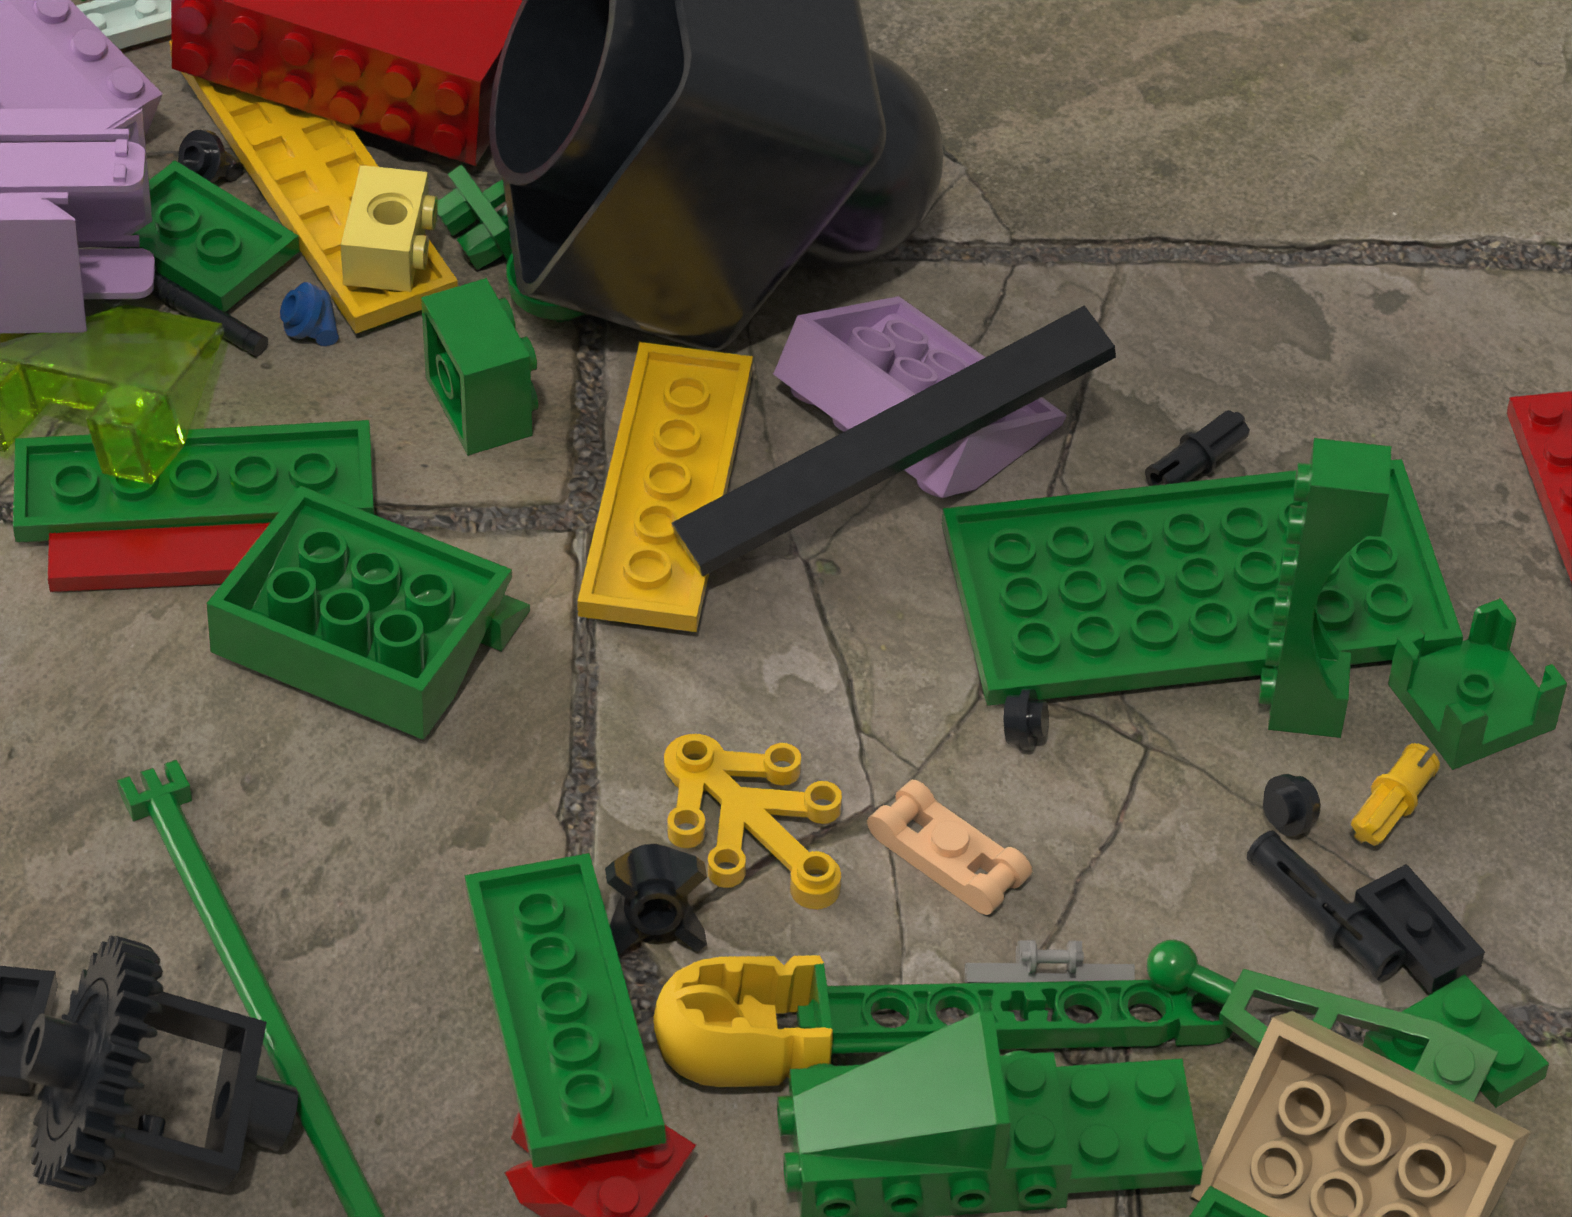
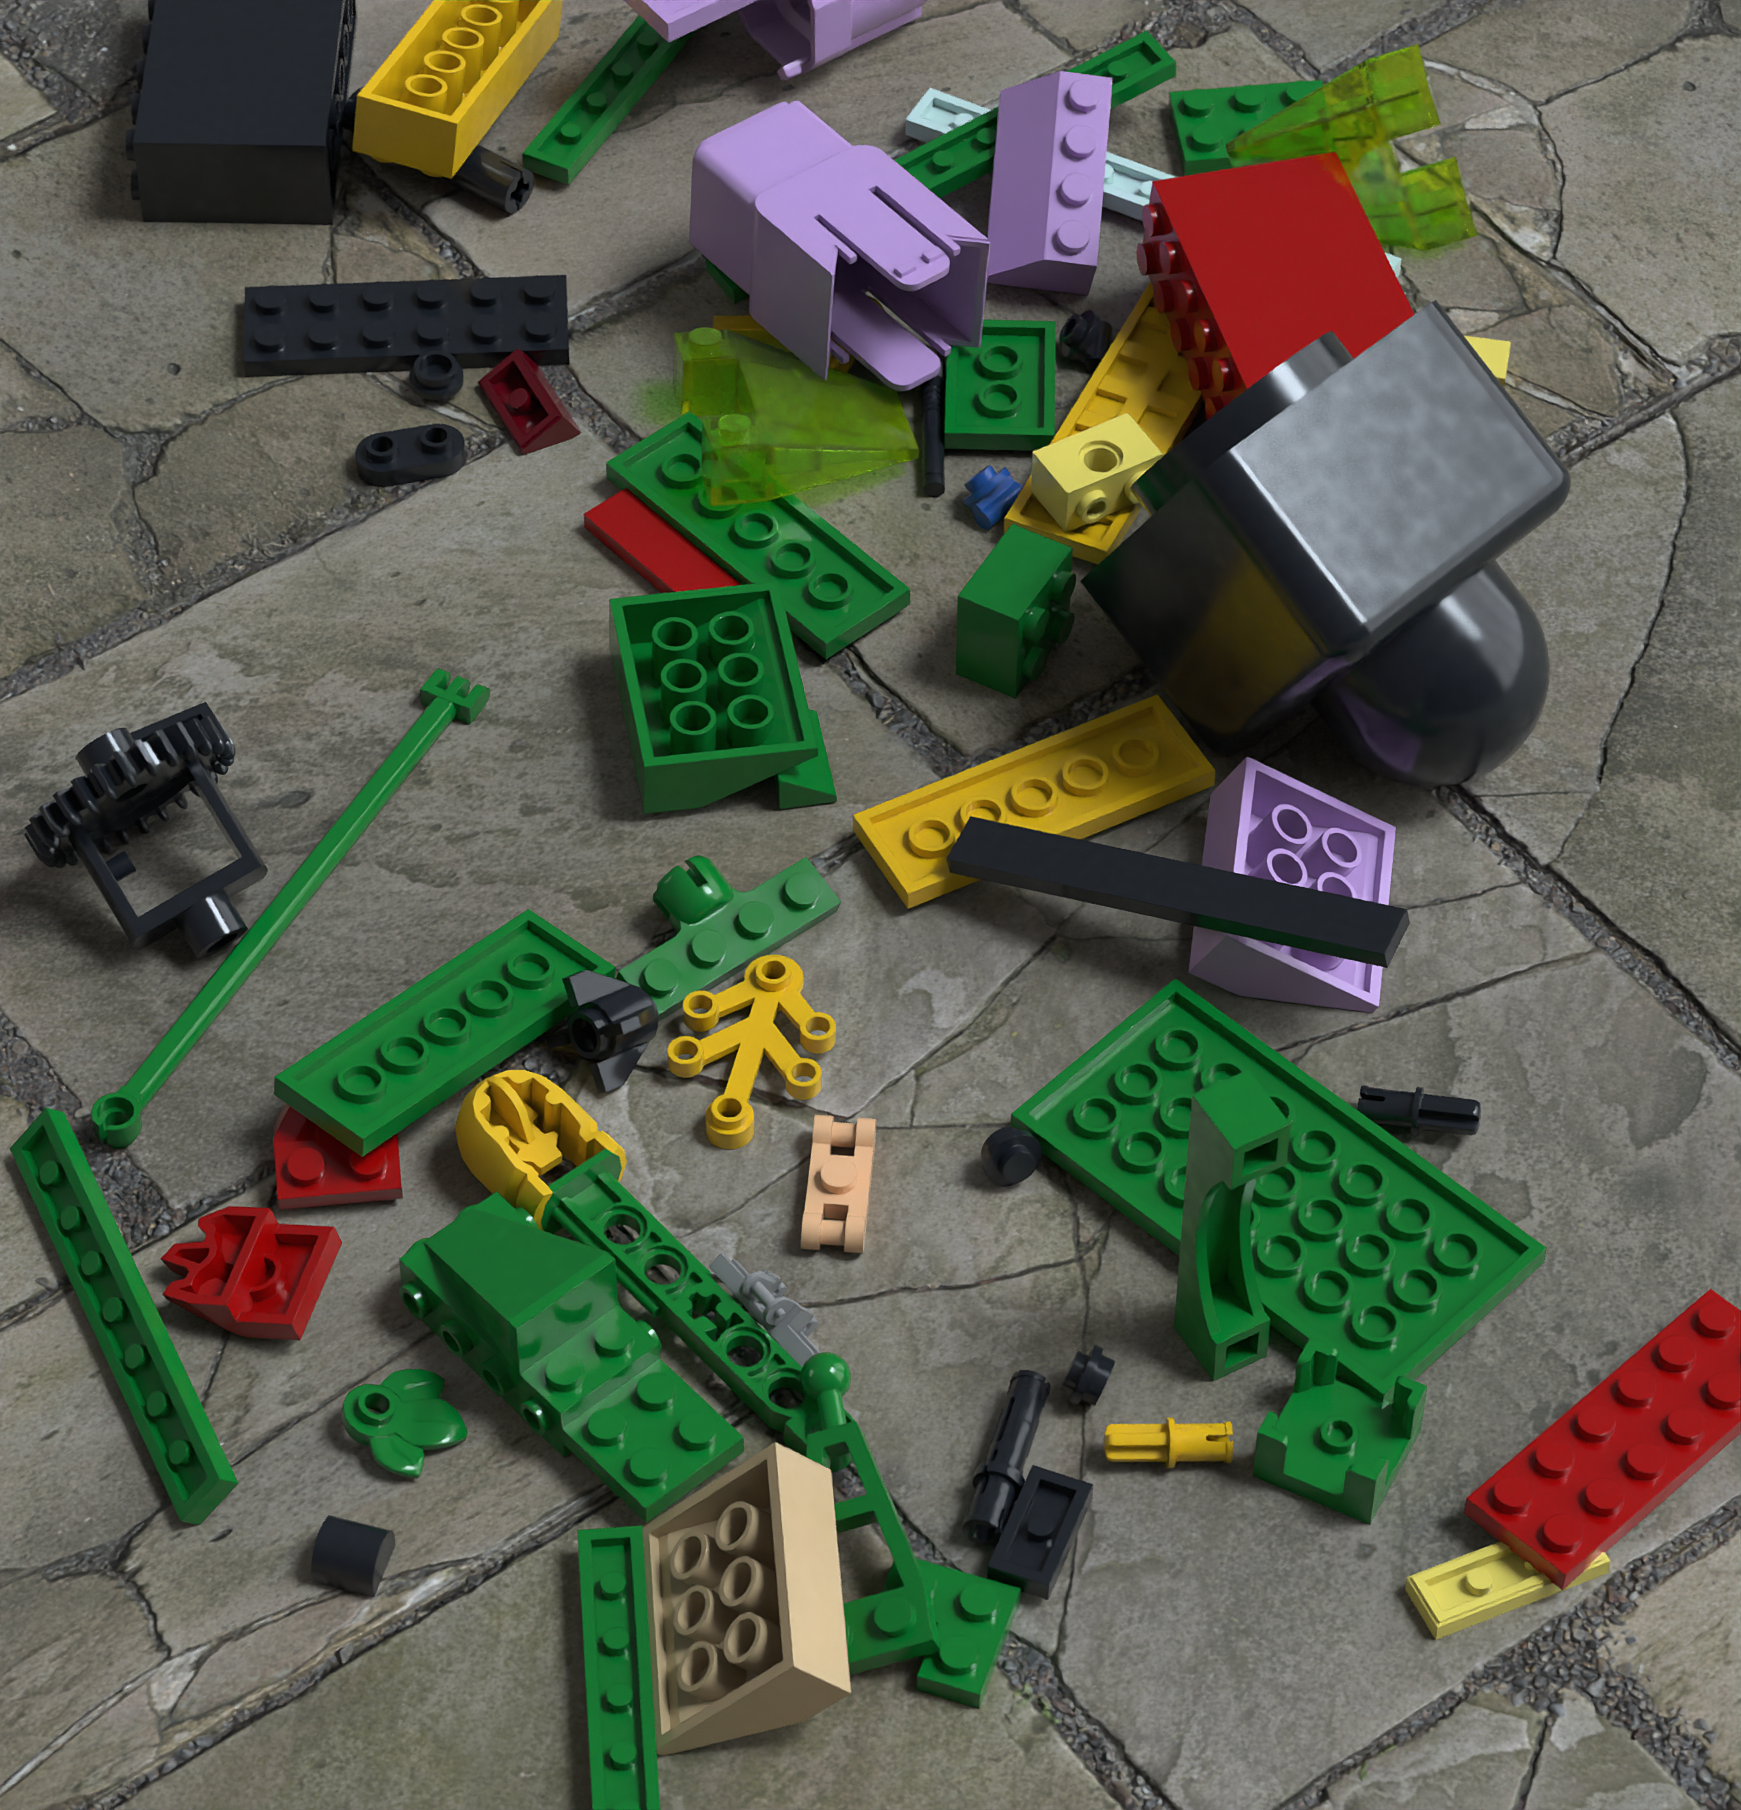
camera: 55 degrees right, 0 degrees up
(608, 757) = (724, 928): none -> green plate

